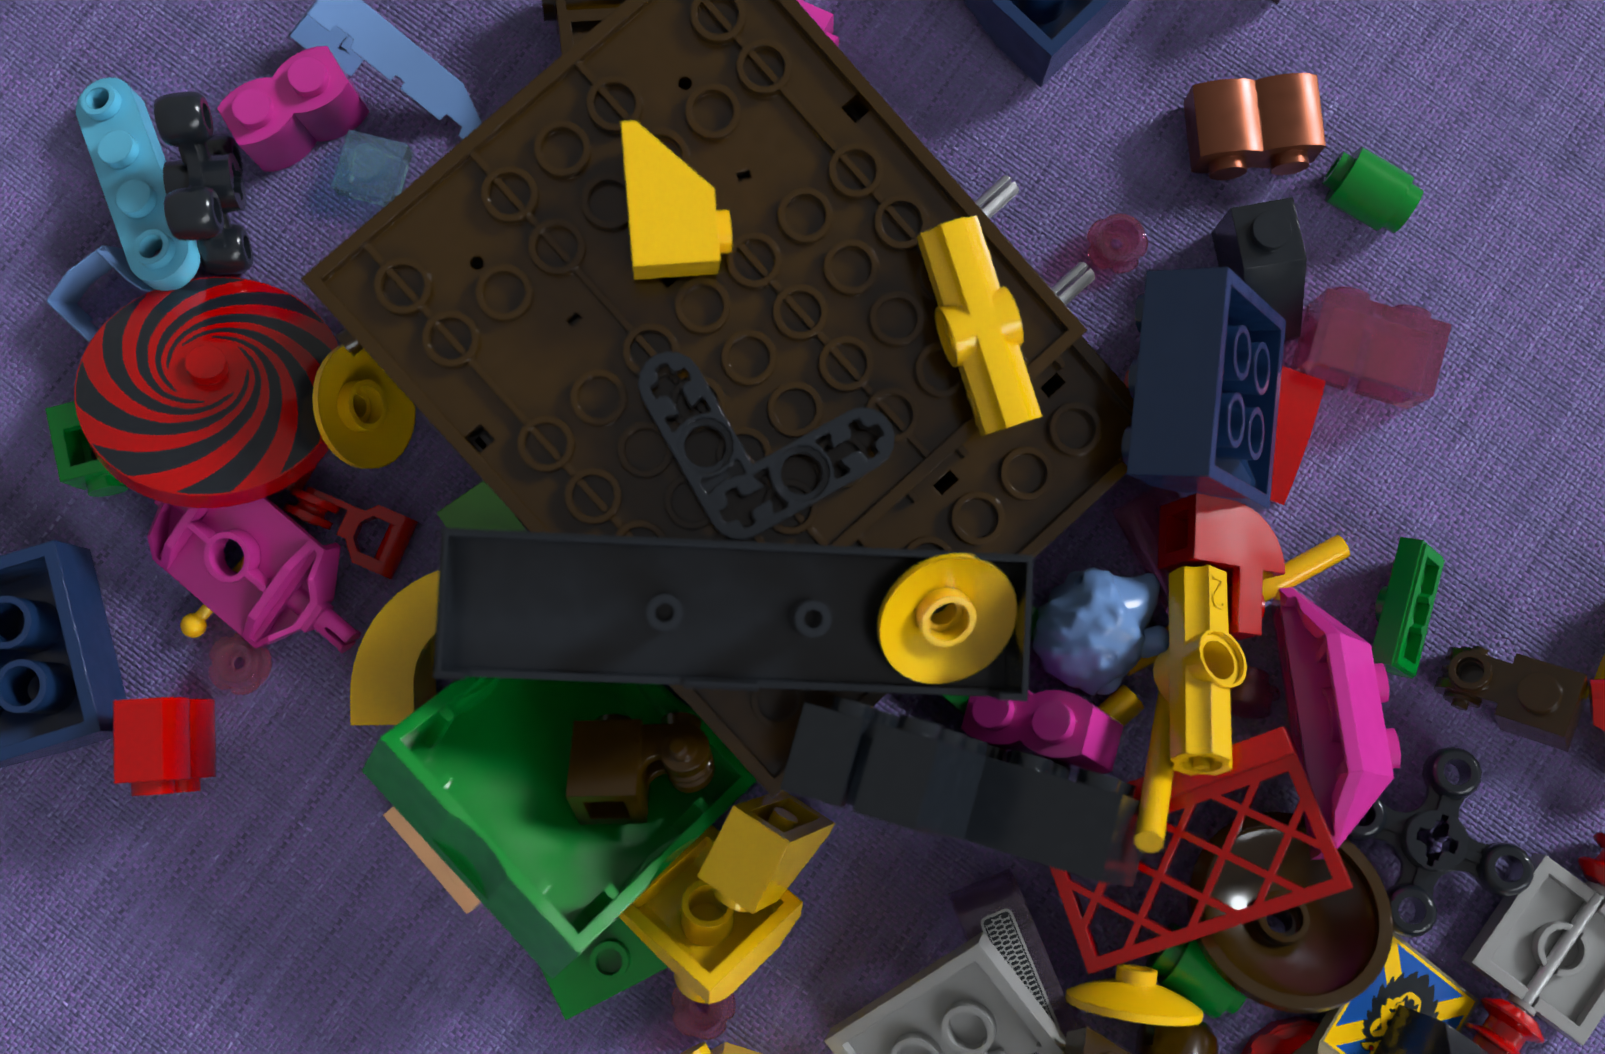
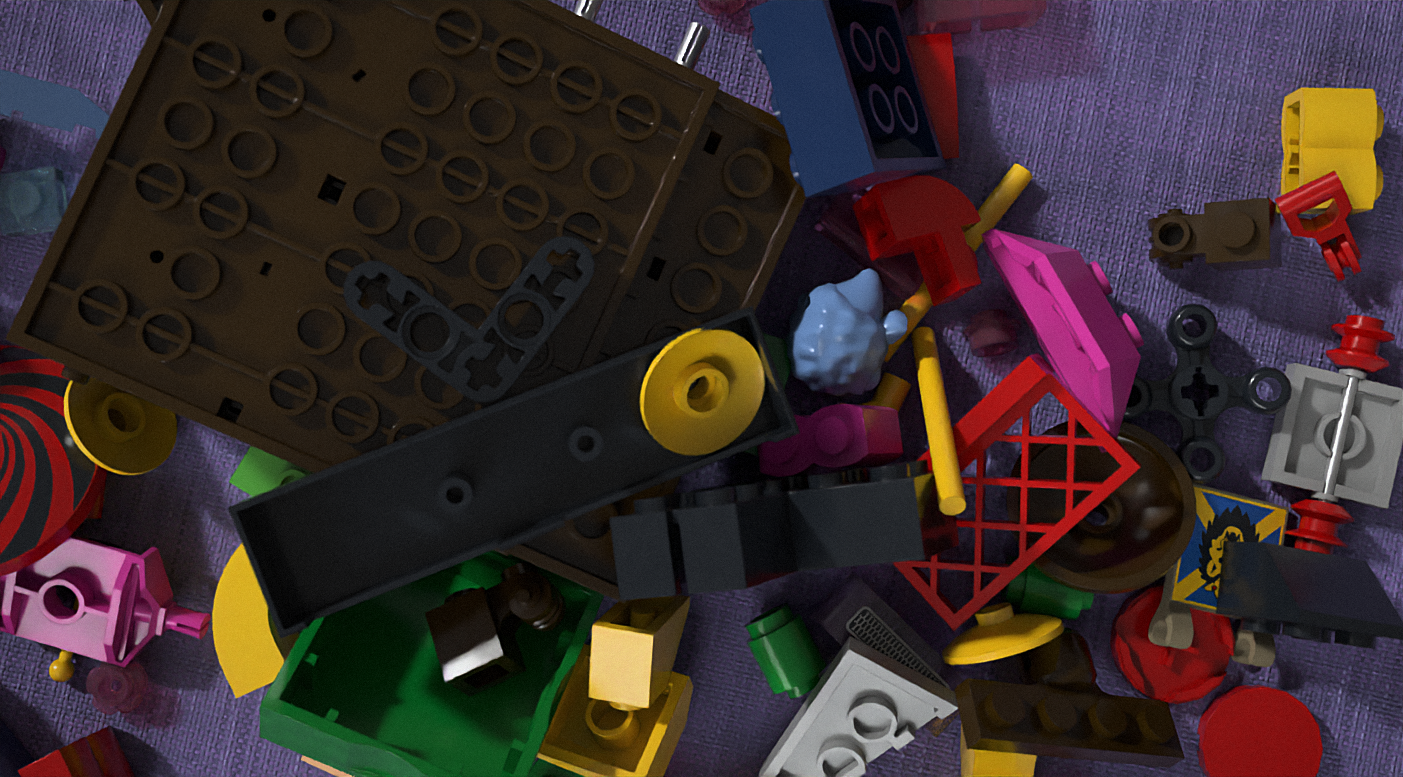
camera: 25 degrees left, 5 degrees up
(314, 506) = (118, 525): red piece -> none
(670, 211) = (304, 140): yellow slope -> none
(907, 920) = (785, 651): none -> green brick
(978, 325) = (621, 121): yellow piece -> none
(1199, 671) = (940, 337): yellow piece -> none
(1406, 607) = (1098, 202): green plate -> none

